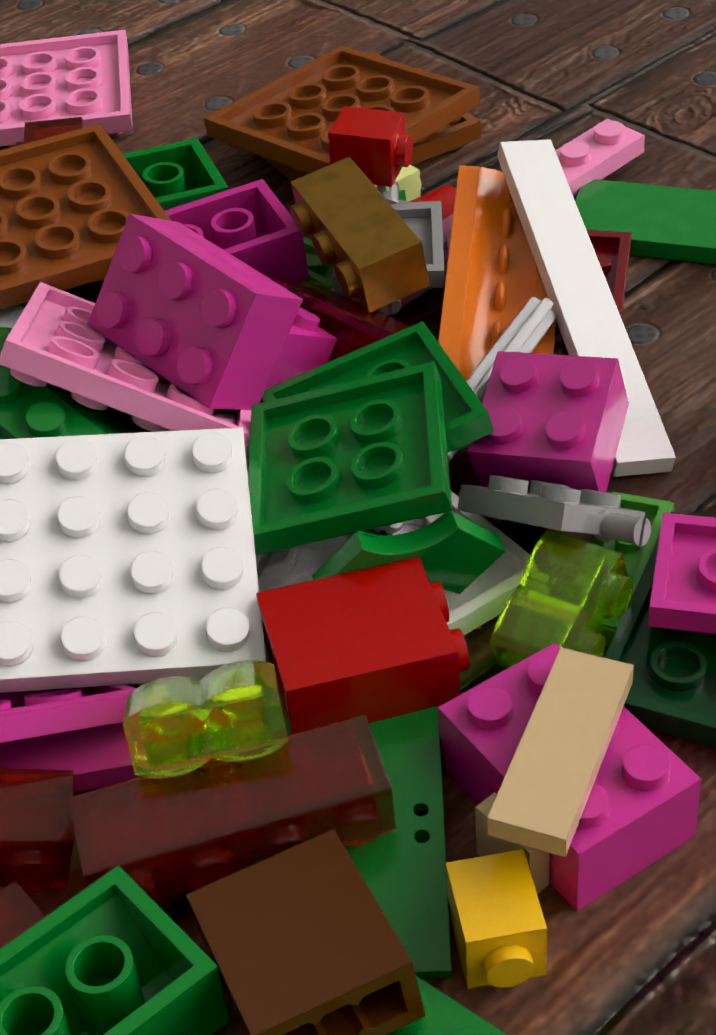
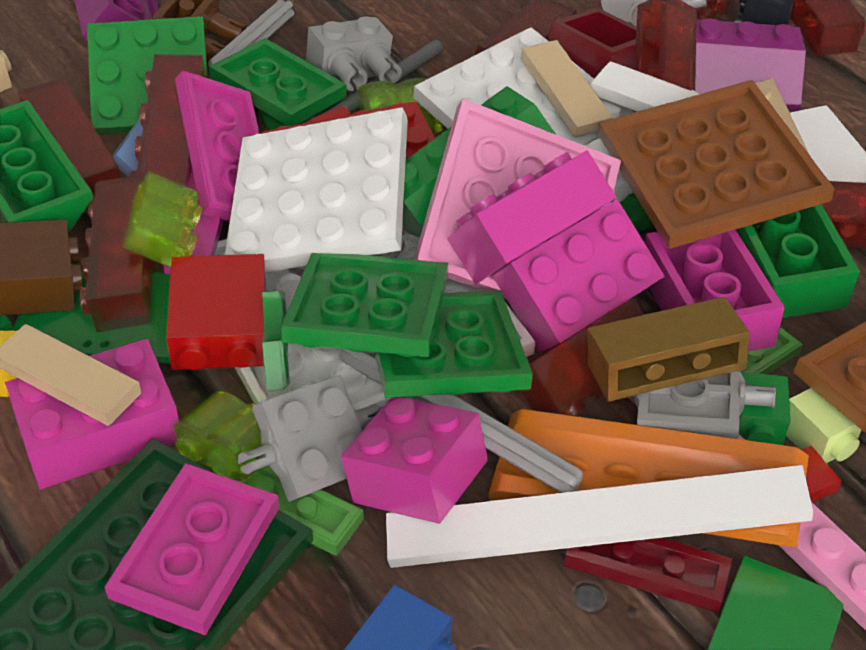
camera: 95 degrees right, 5 degrees up
(373, 141) = (796, 363): red brick -> none

